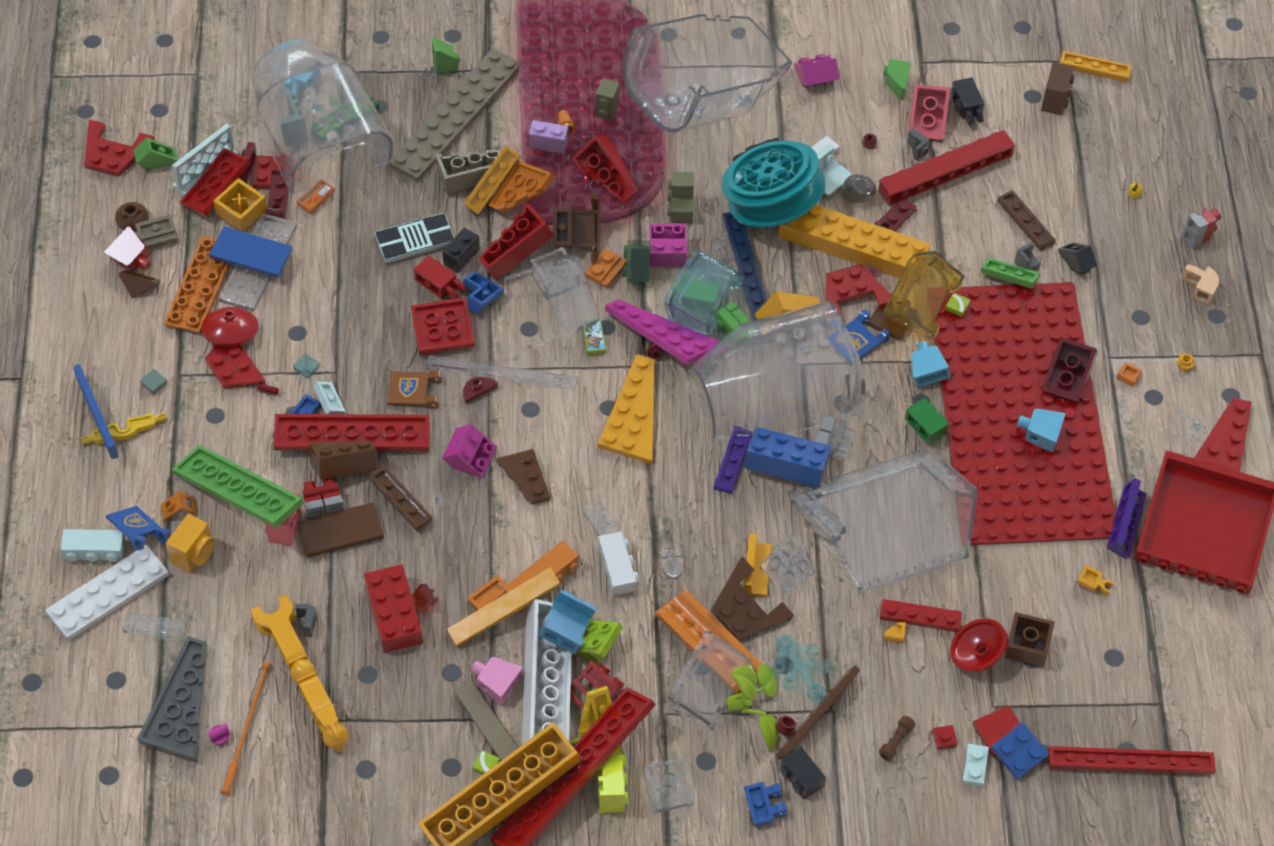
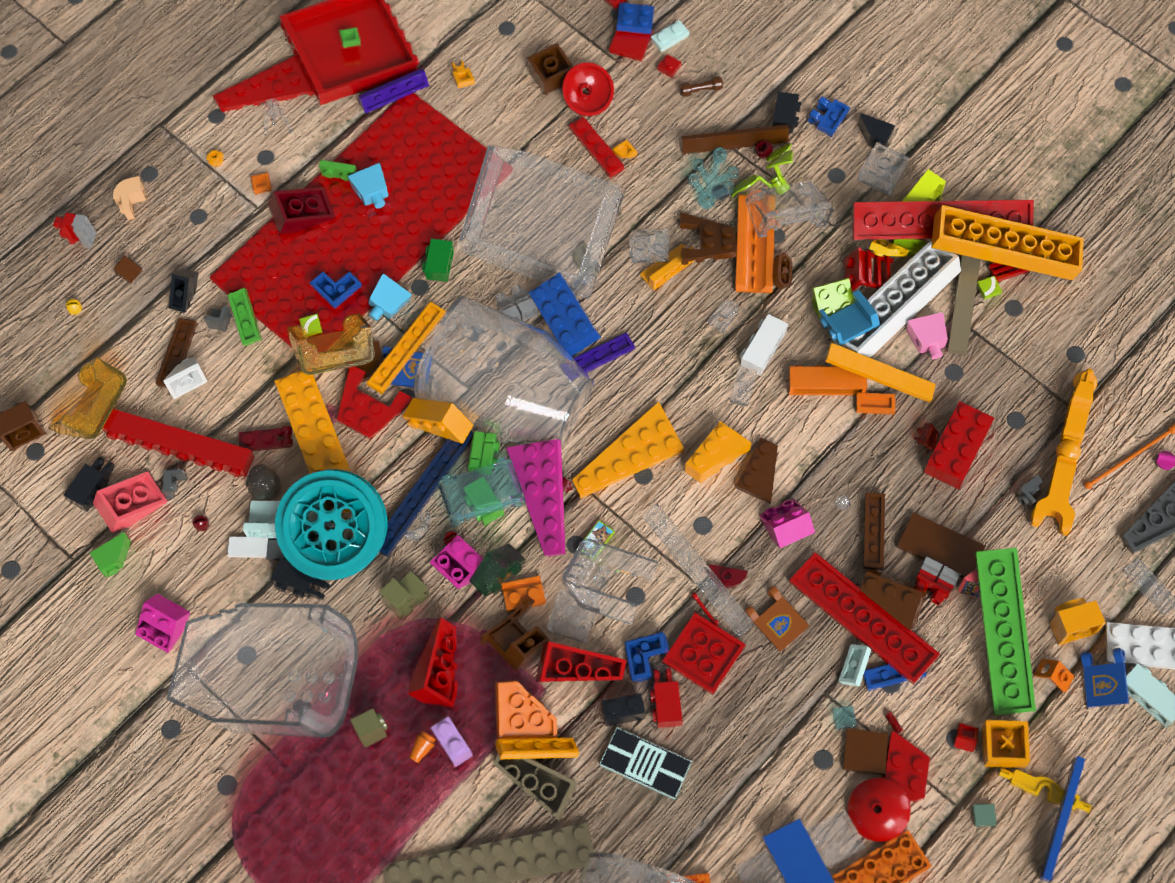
camera: 130 degrees left, 10 degrees up
(175, 427) = (1005, 744): none -> light orange brick
(209, 420) = (966, 737): none -> red slope
(272, 356) = (865, 751): none -> reddish brown tile
(486, 358) = (696, 598): none -> red hinge
(570, 457) = (716, 451): none -> light orange wedge
(664, 634) = (782, 271): none -> reddish brown plate
(710, 820) = (875, 130): none -> black slope
(874, 346) = (405, 348): none -> light orange tile
(968, 334) = (336, 292): none -> blue brick
(997, 204) = (184, 378): none -> white slope
(1020, 123) = (91, 414): none -> clear yellow windscreen
(1083, 418) = (337, 170): none -> bright green plate
(1133, 240) = (127, 269): none -> reddish brown slope
(1208, 518) = (349, 37): none -> bright green tile

